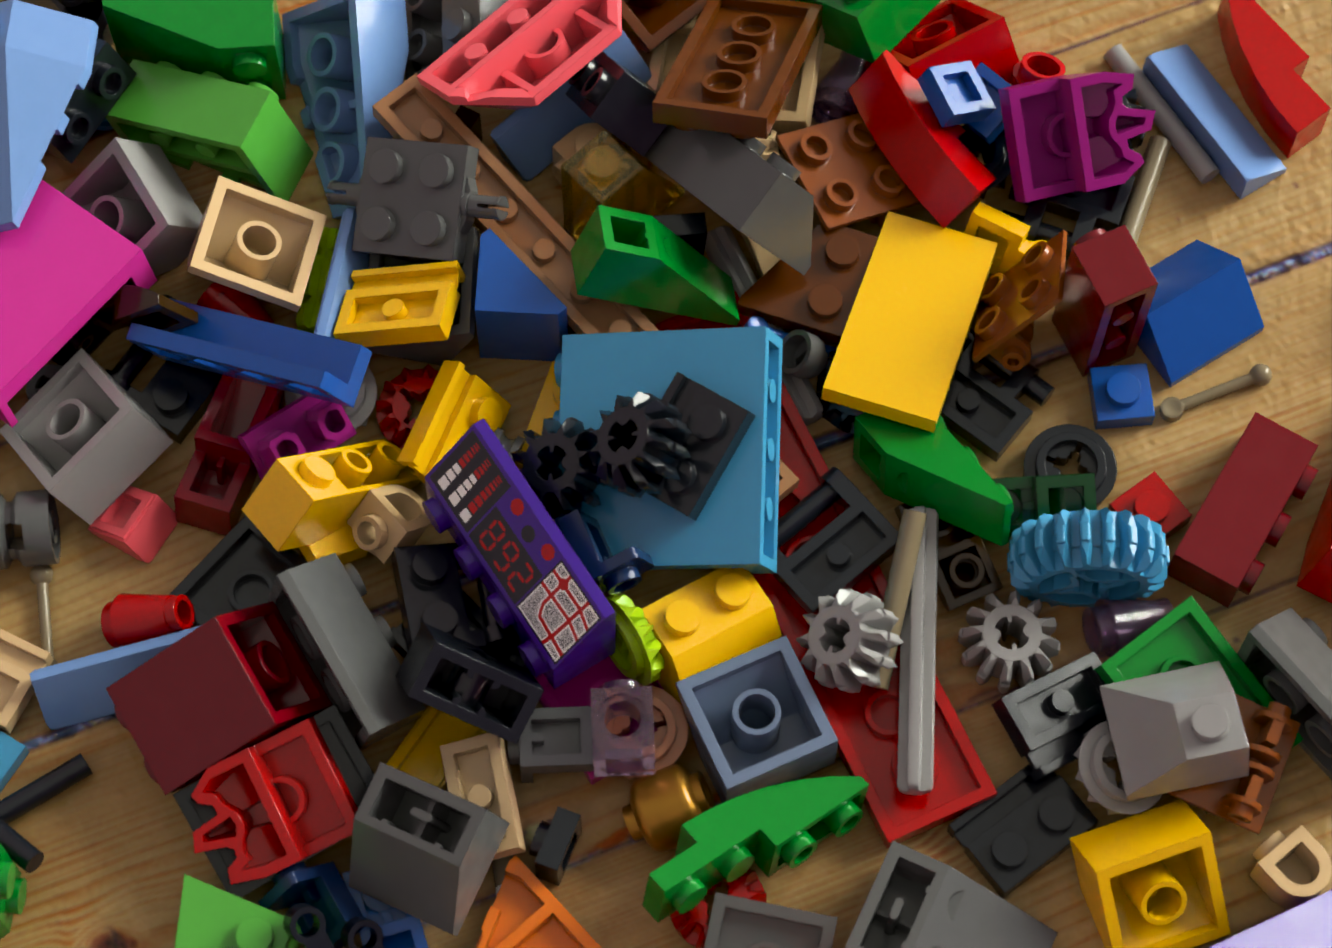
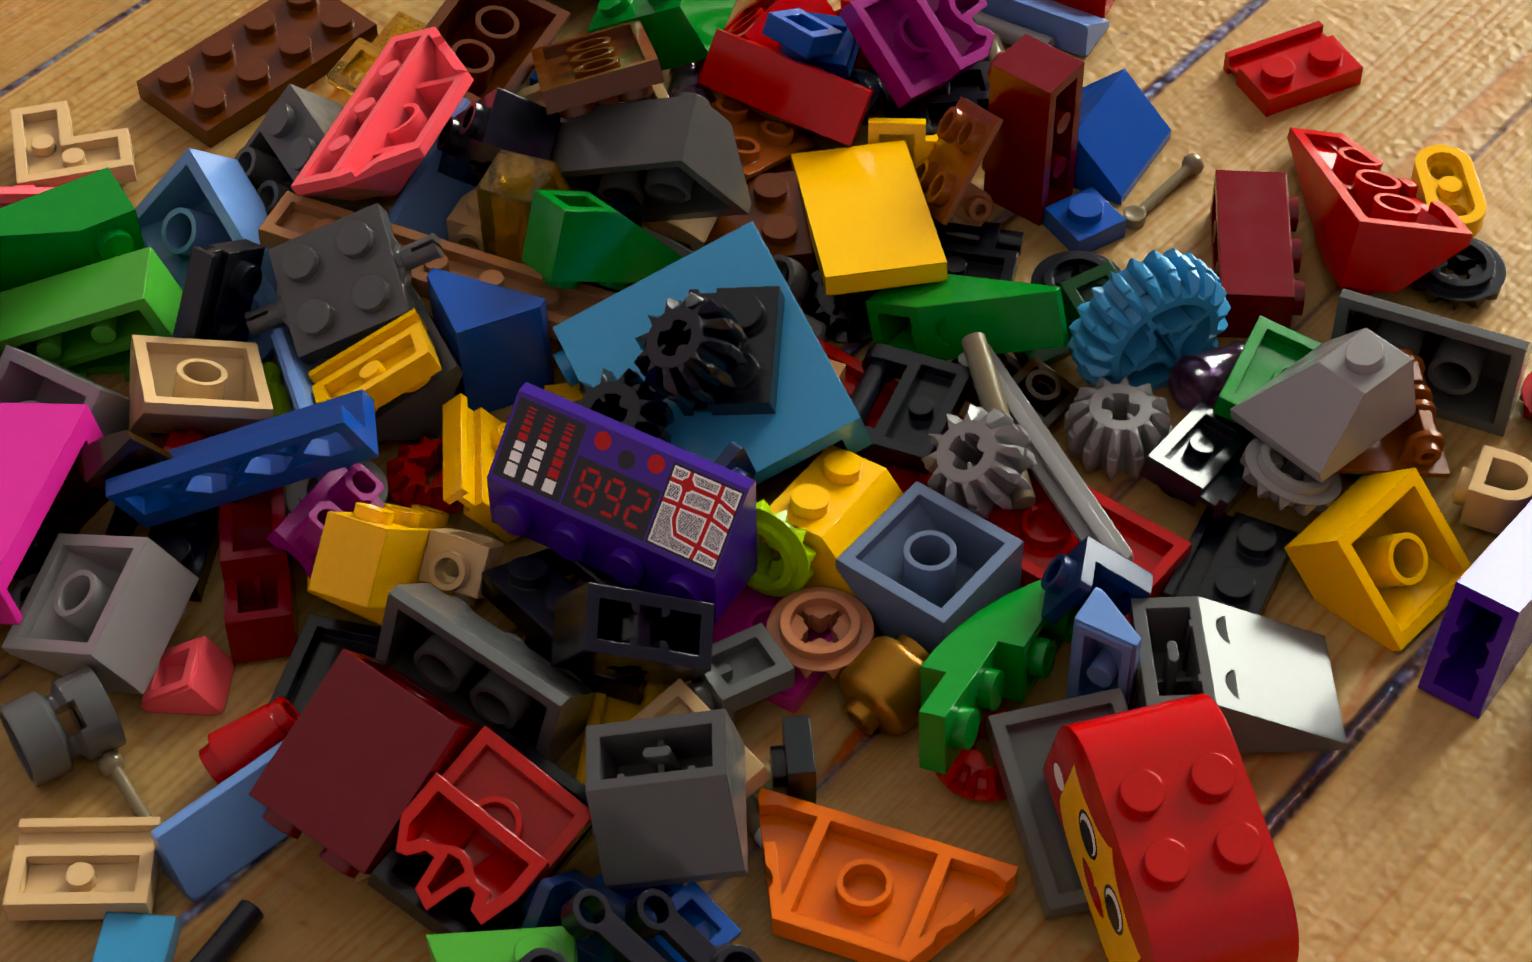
camera: 25 degrees left, 20 degrees down
(313, 159) = (220, 291): none -> black plate
(622, 754) = (811, 617): brick -> none
(840, 879) = (1102, 650): none -> medium blue slope
(875, 806) = (1091, 565): none -> dark blue bracket

